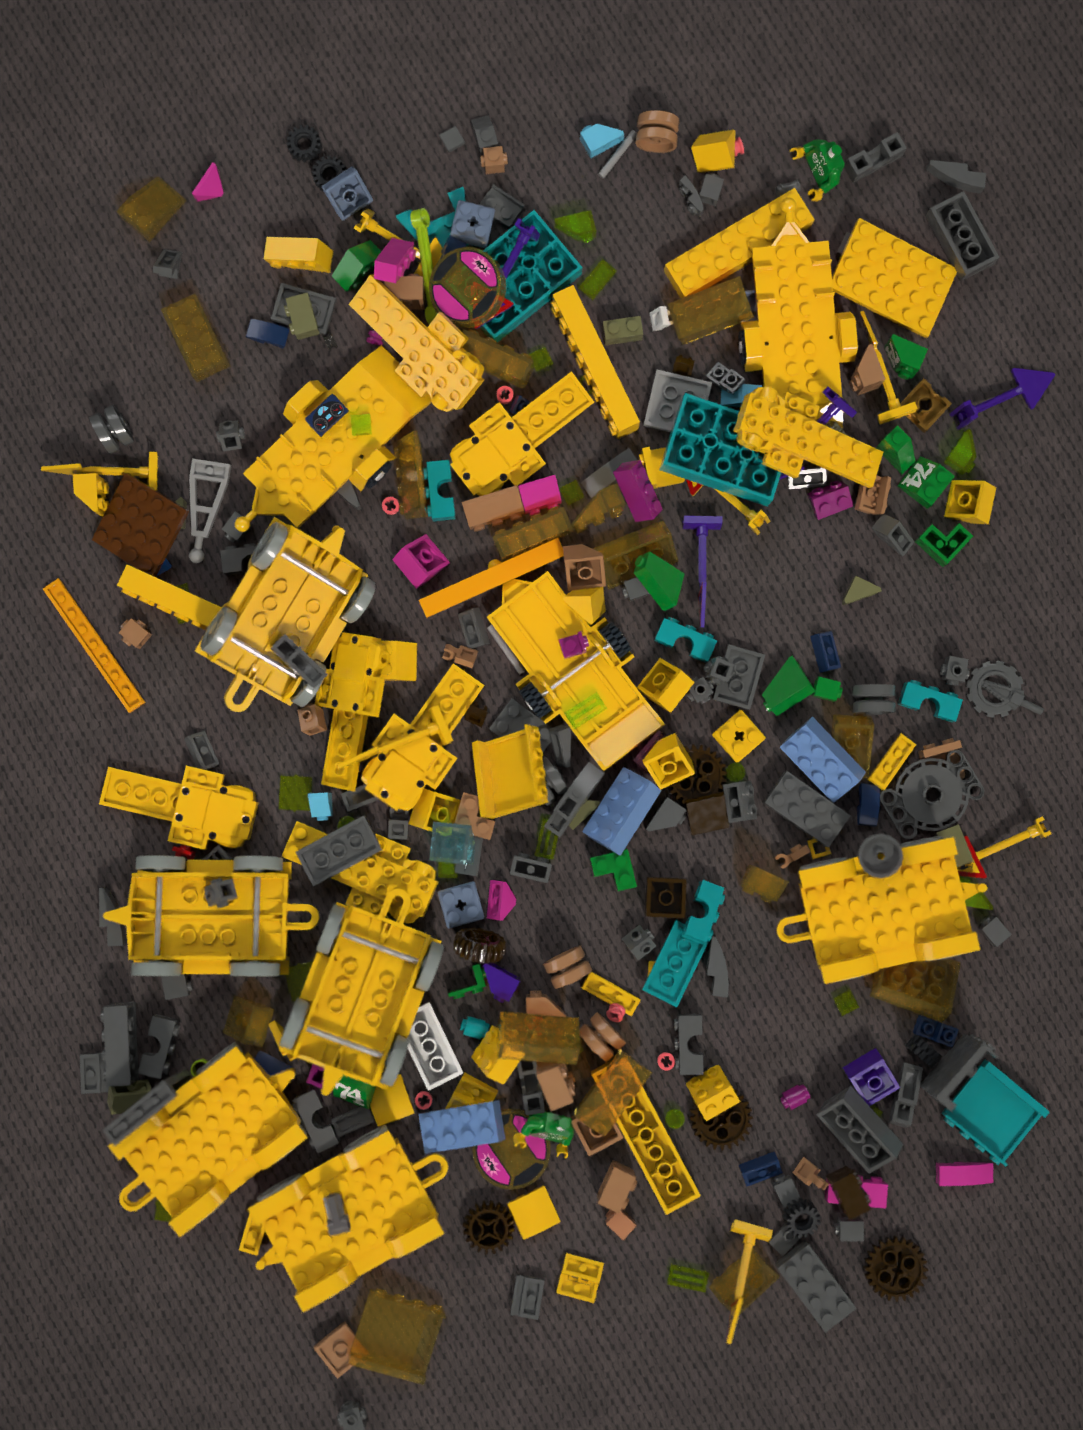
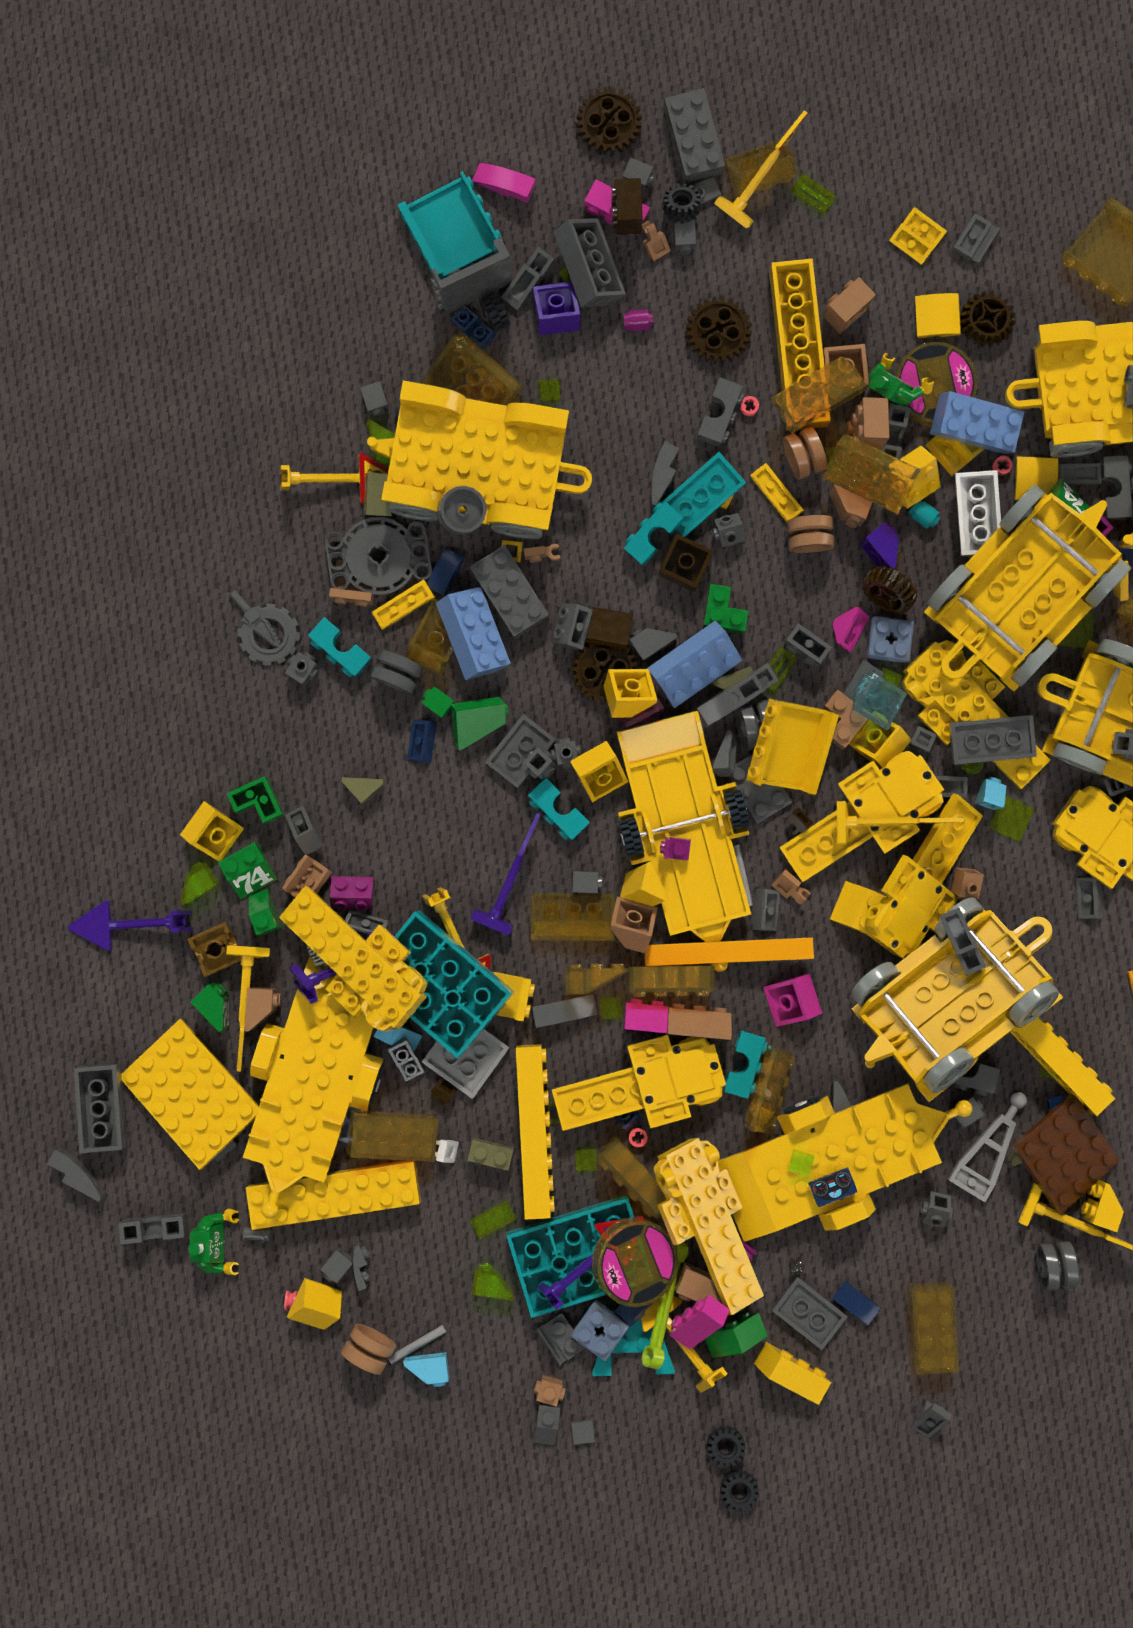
camera: 160 degrees left, 0 degrees up
(134, 633) = (1112, 1045): medium nougat brick -> none
(151, 208) = (925, 1487): clear yellow slope -> none
(210, 185) = (855, 1486): dark pink slope -> none
(302, 316) = (815, 1304): olive brick -> none
(349, 182) = (720, 1405): sand blue brick -> none
(385, 508) = (794, 1070): coral bush -> none
(480, 976) = (907, 551): green bracket -> none
(599, 701) = (686, 770): clear neon green tile -> none
(615, 1012) = (780, 472): coral bush -> none
(620, 1223) = (858, 267): nougat brick -> none
(637, 490) = (545, 979): magenta brick -> none
(659, 579) = (561, 880): green slope -> none
(674, 1118) = (763, 348): clear neon green plate -> none
(712, 1092) = (718, 356): yellow bracket -> none
(726, 736) = (553, 681): yellow brick -> none
(735, 772) = (563, 658): clear neon green plate -> none
(760, 1168) = (699, 267): dark blue slope -> none
(762, 883) = (582, 537): clear yellow slope -> none

